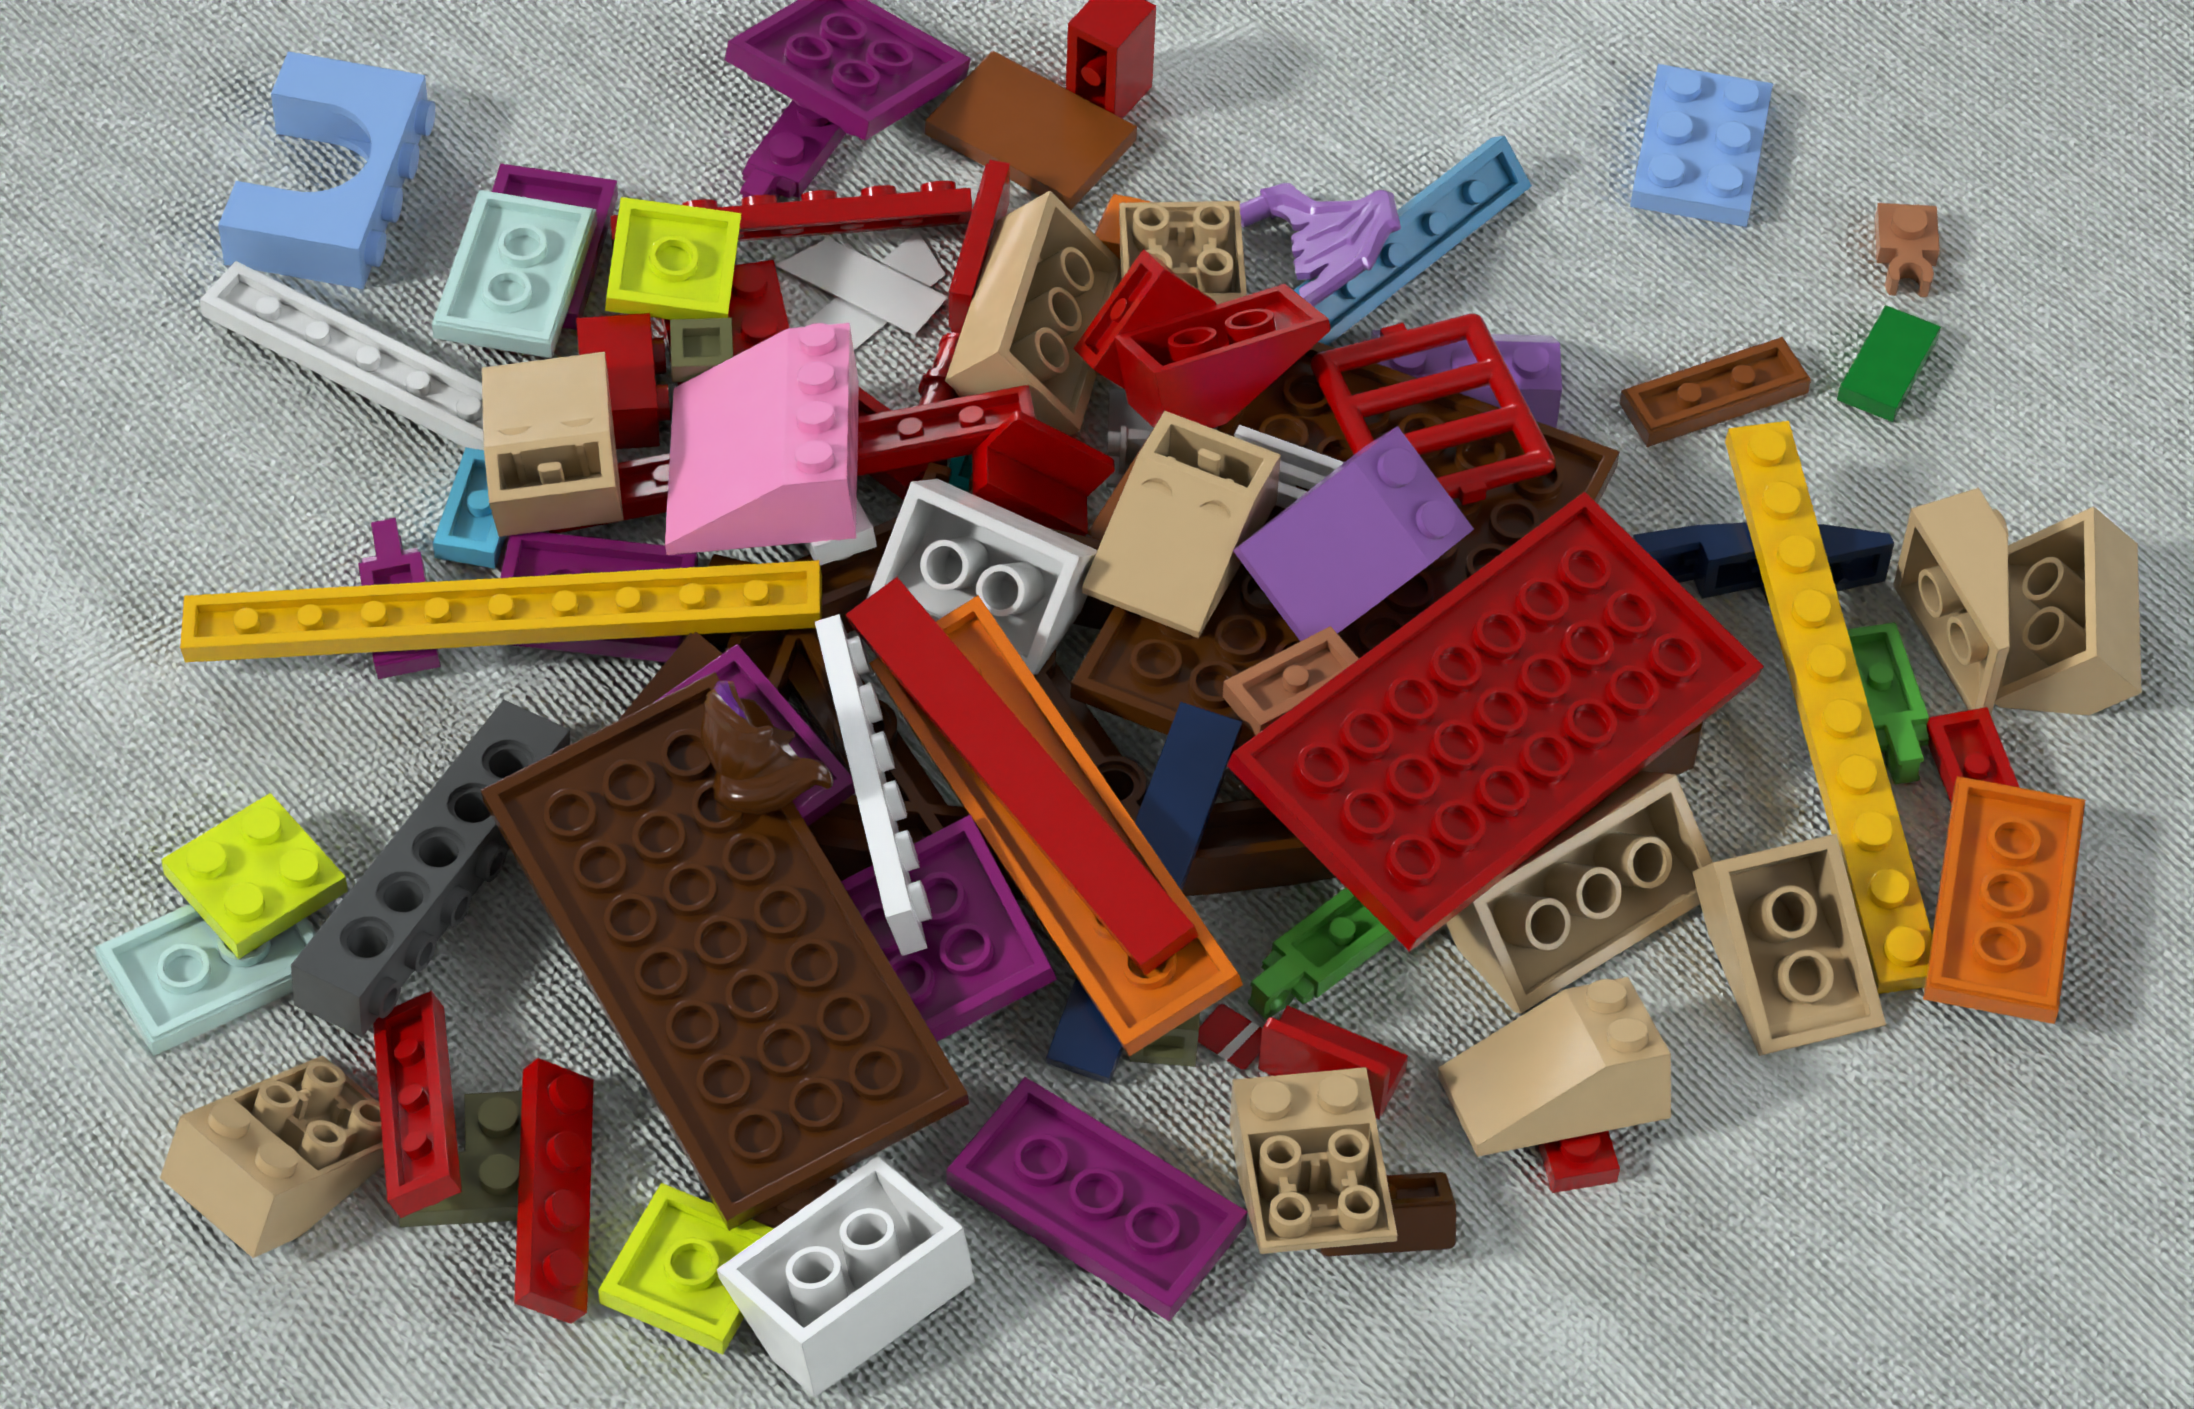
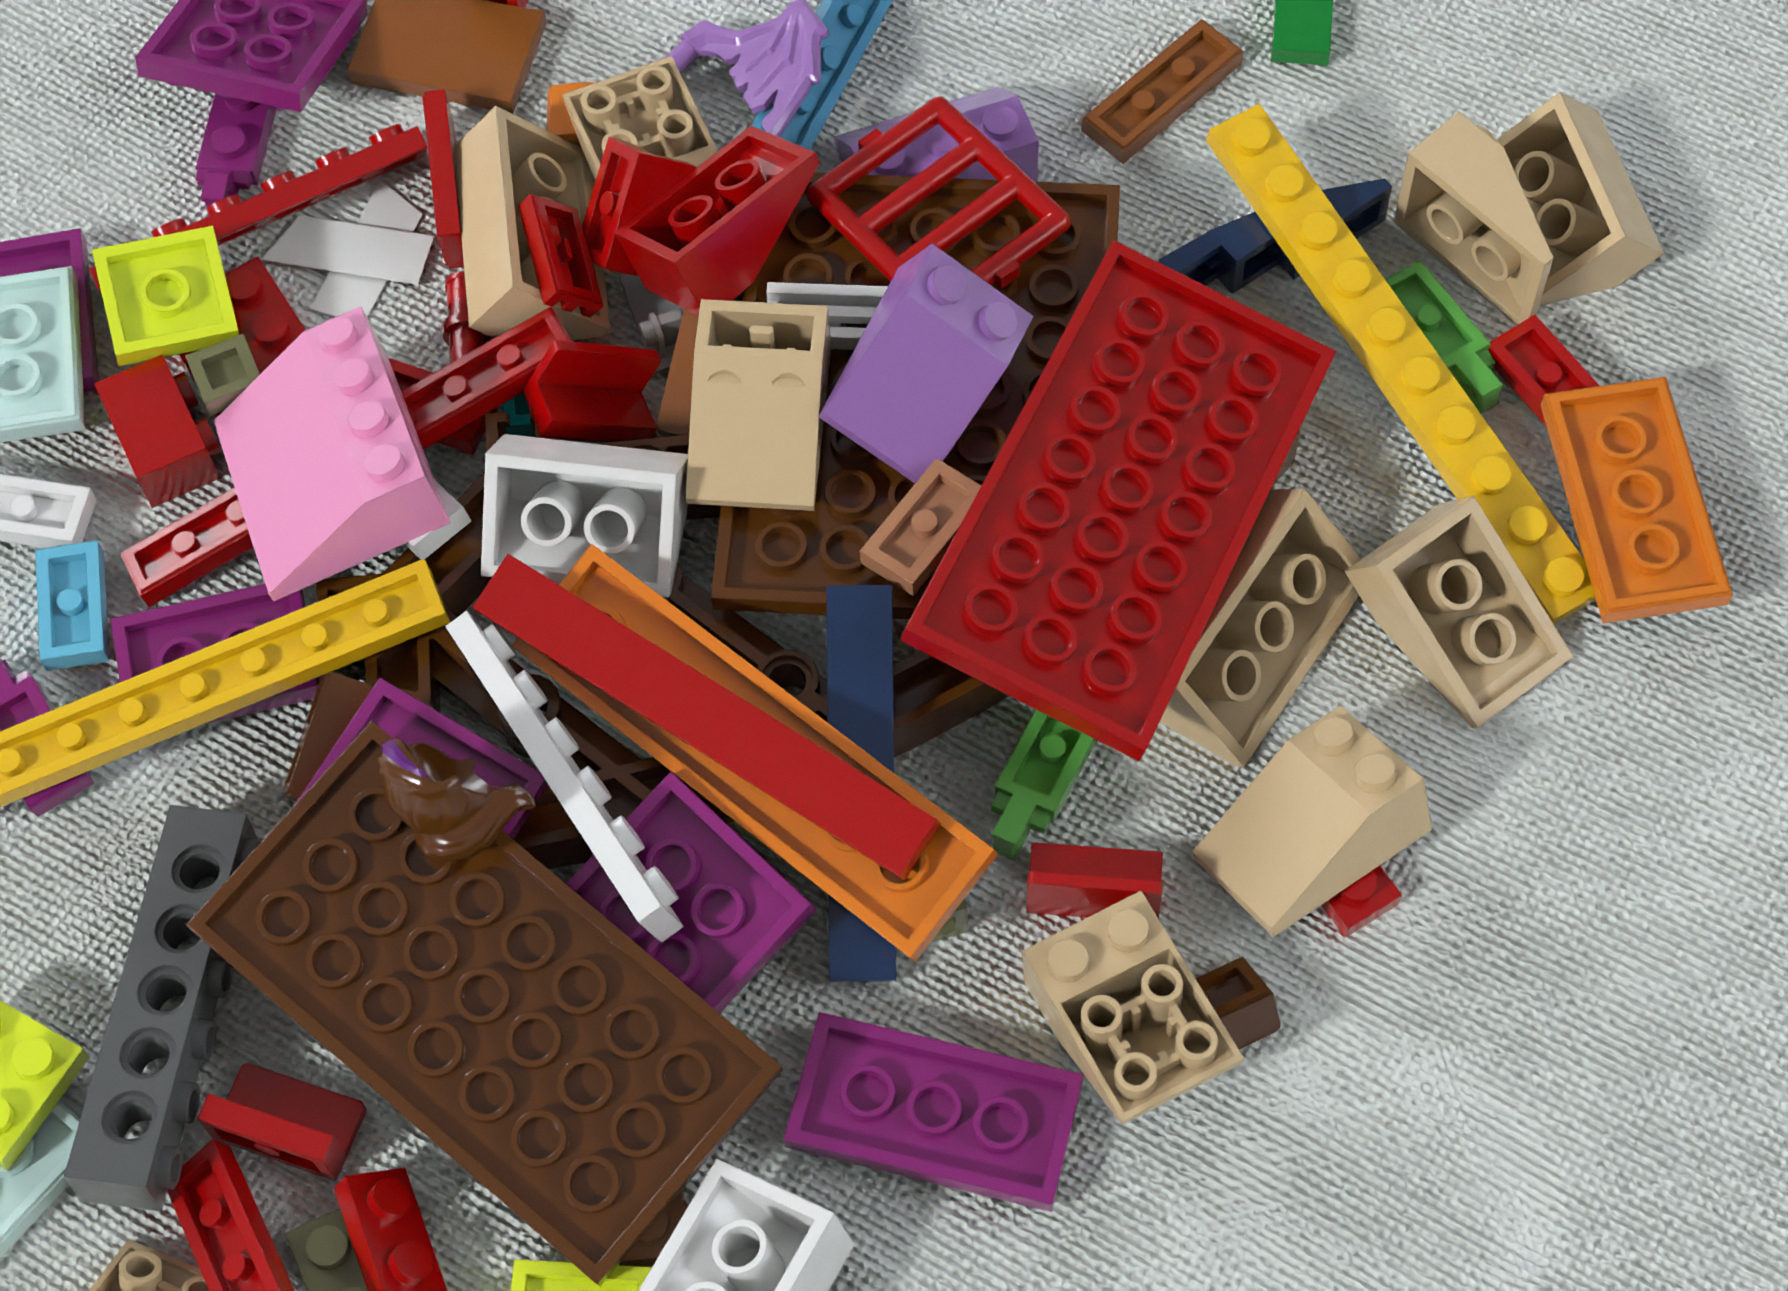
camera: 15 degrees left, 10 degrees up
(500, 1005) = (285, 1120): none -> red panel
(550, 444) = (116, 524): tan slope -> none
(1048, 338) = (560, 255): none -> red tile
(1231, 1036) = (997, 892): red sticker -> none

